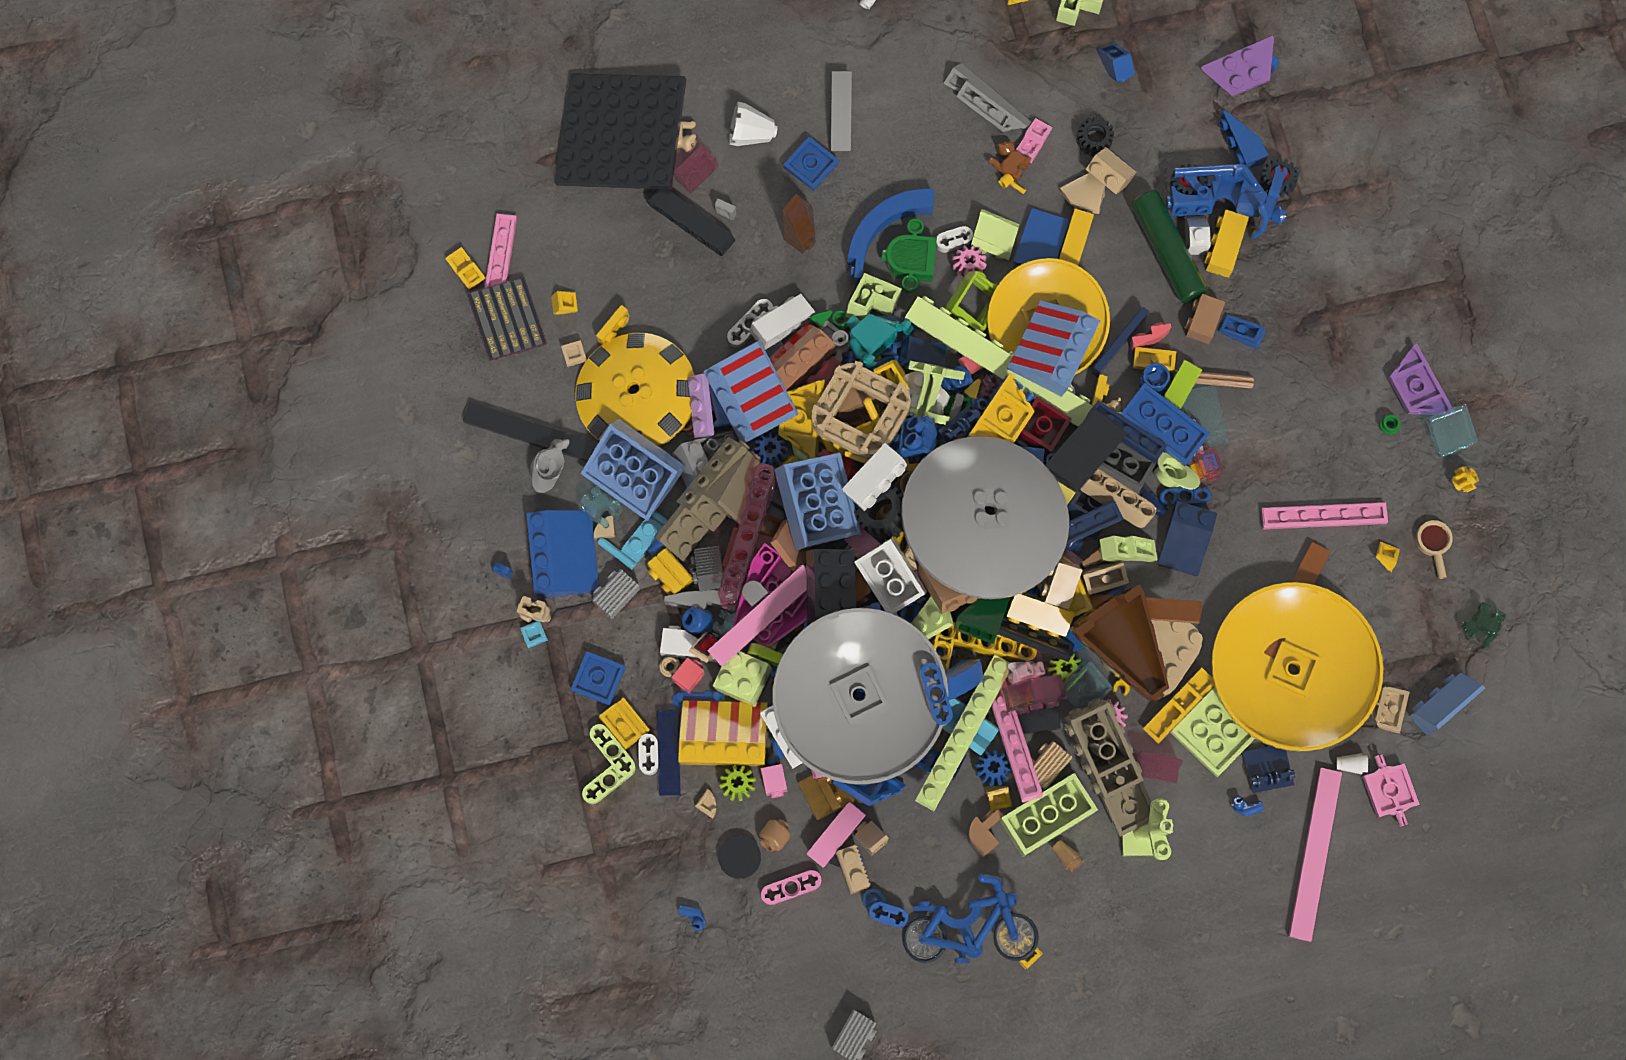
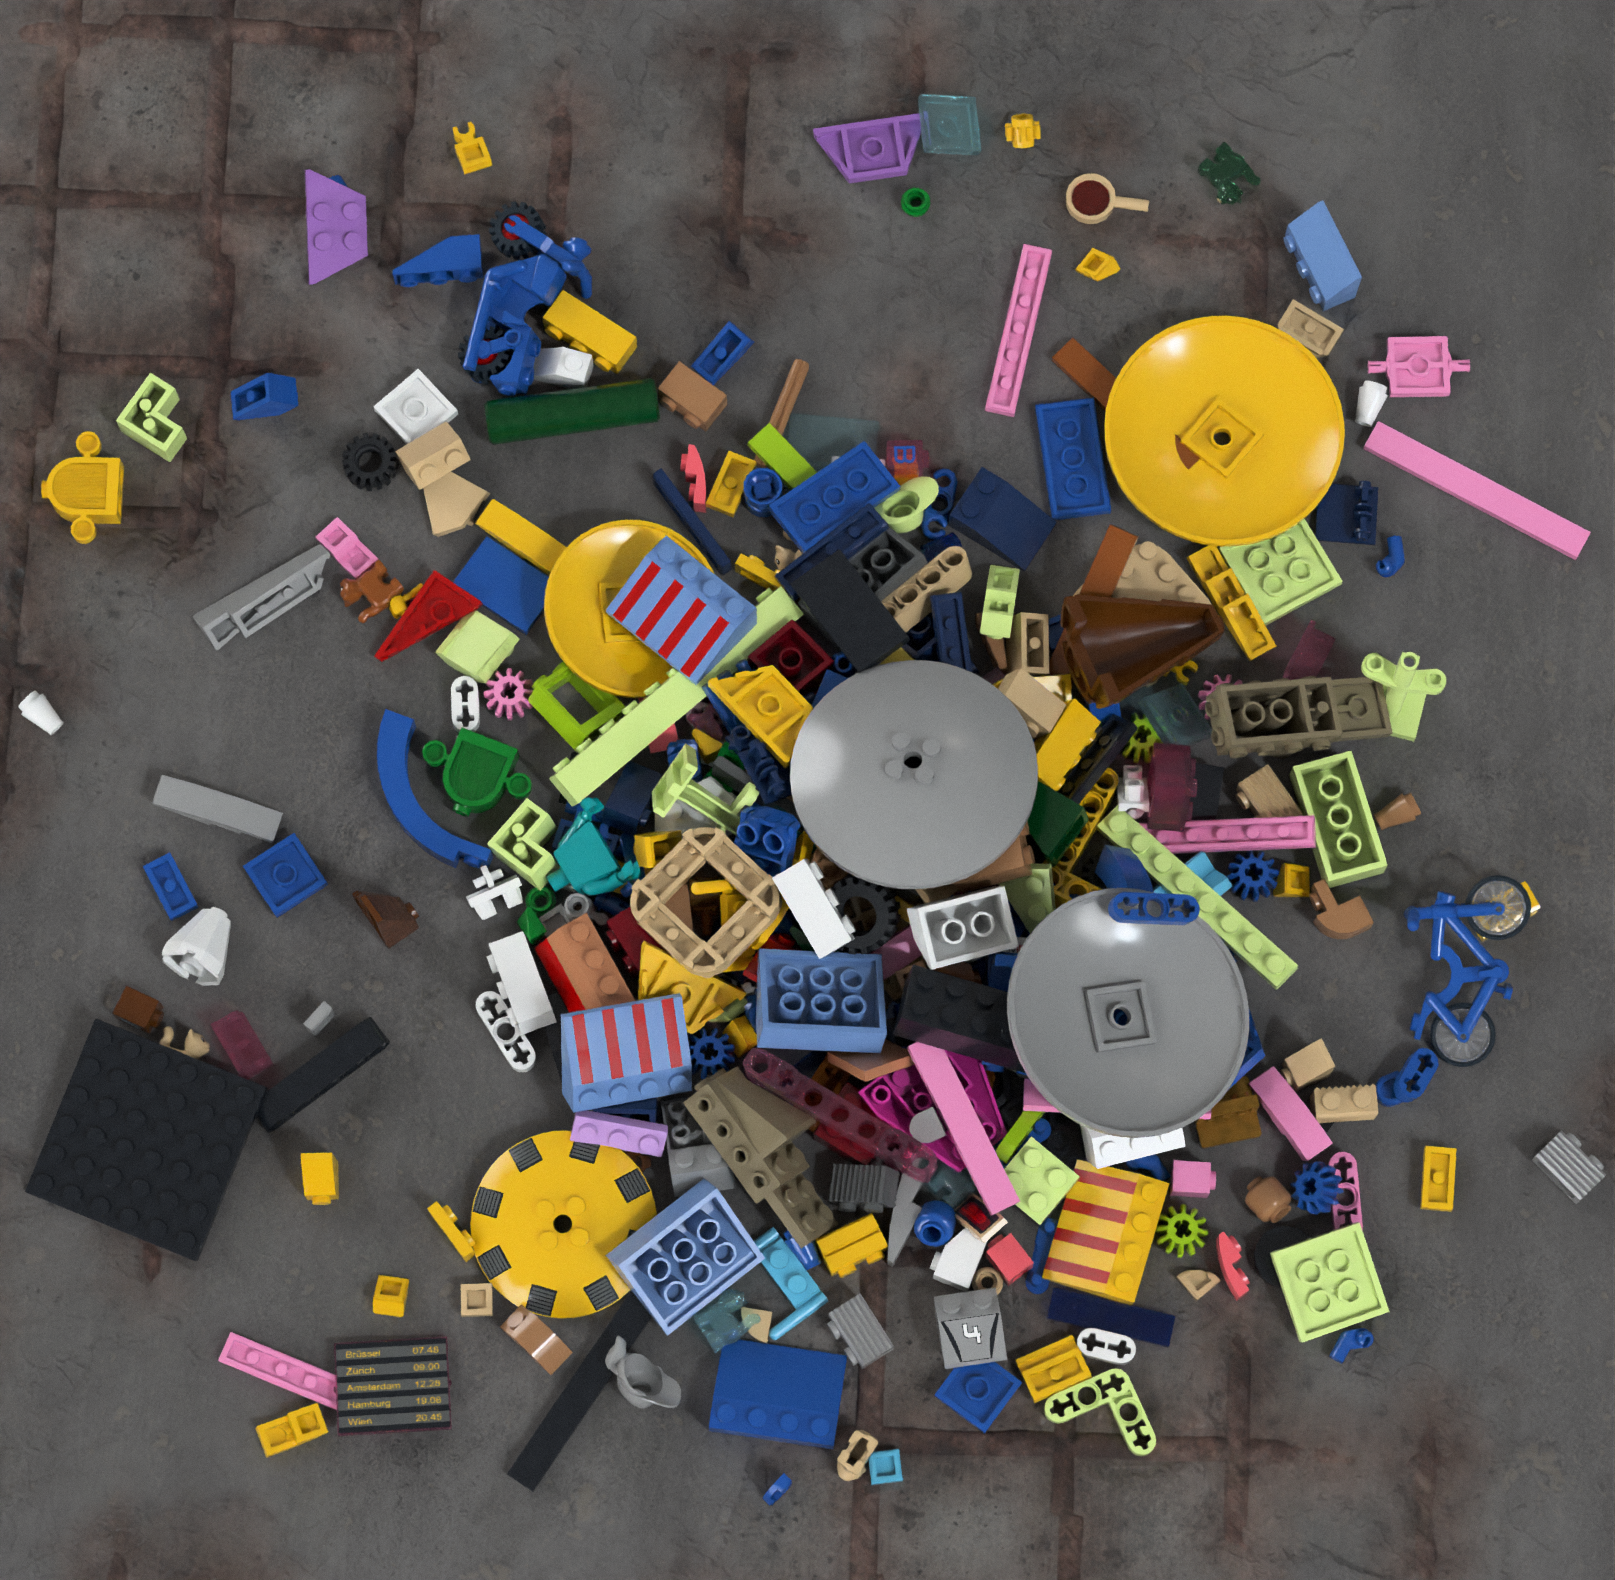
camera: 75 degrees left, 0 degrees up
(556, 395) = (536, 1339): none -> medium nougat brick
(624, 237) = (320, 1177): none -> yellow slope
(634, 661) = (970, 1328): none -> light grey slope
(700, 103) = (138, 1010): none -> reddish brown brick
(729, 818) = (1228, 1255): none -> coral slope
(729, 890) = (1329, 1282): none -> yellowish green plate
(784, 99) = (170, 886): none -> blue plate
(790, 865) = (1316, 1187): none -> blue gear
(821, 947) = (1438, 1178): none -> yellow plate
(830, 284) = (507, 888): none -> white hips
(1011, 201) = (431, 610): none -> red wing
(1140, 152) = (415, 408): none -> white plate
(1245, 574) = (1073, 459): none -> blue tile
(1324, 137) = (471, 150): none -> yellow plate

